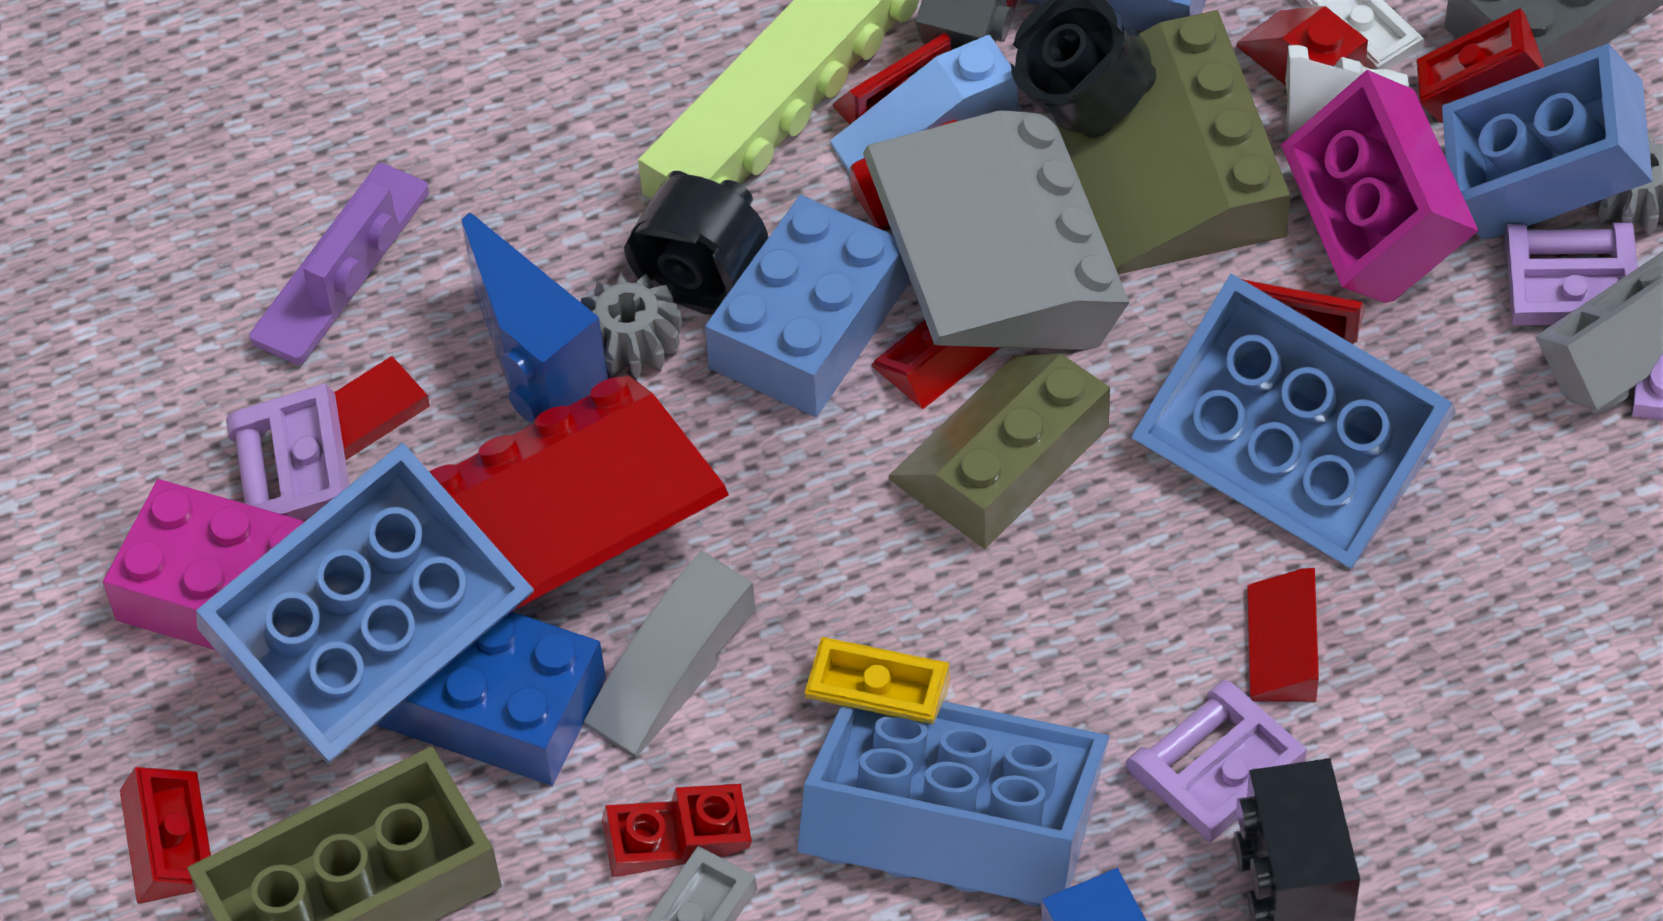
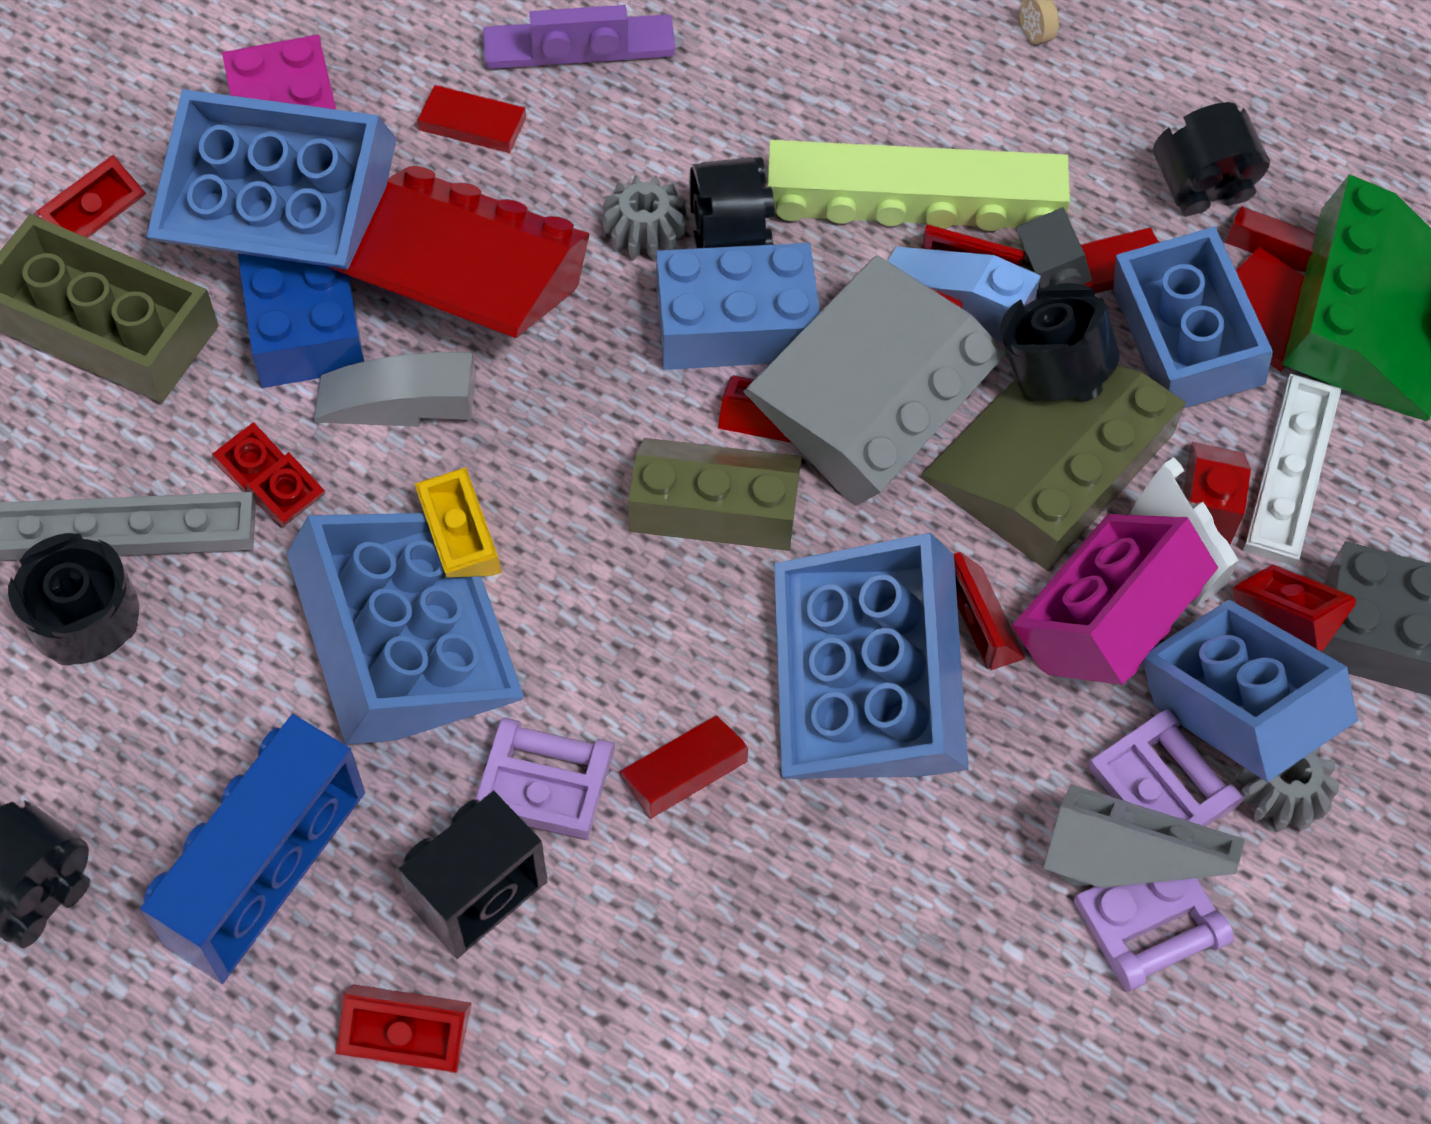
camera: 50 degrees right, 5 degrees up
(305, 450) = (406, 94): lavender plate -> none
(539, 330) = (582, 154): blue slope -> none

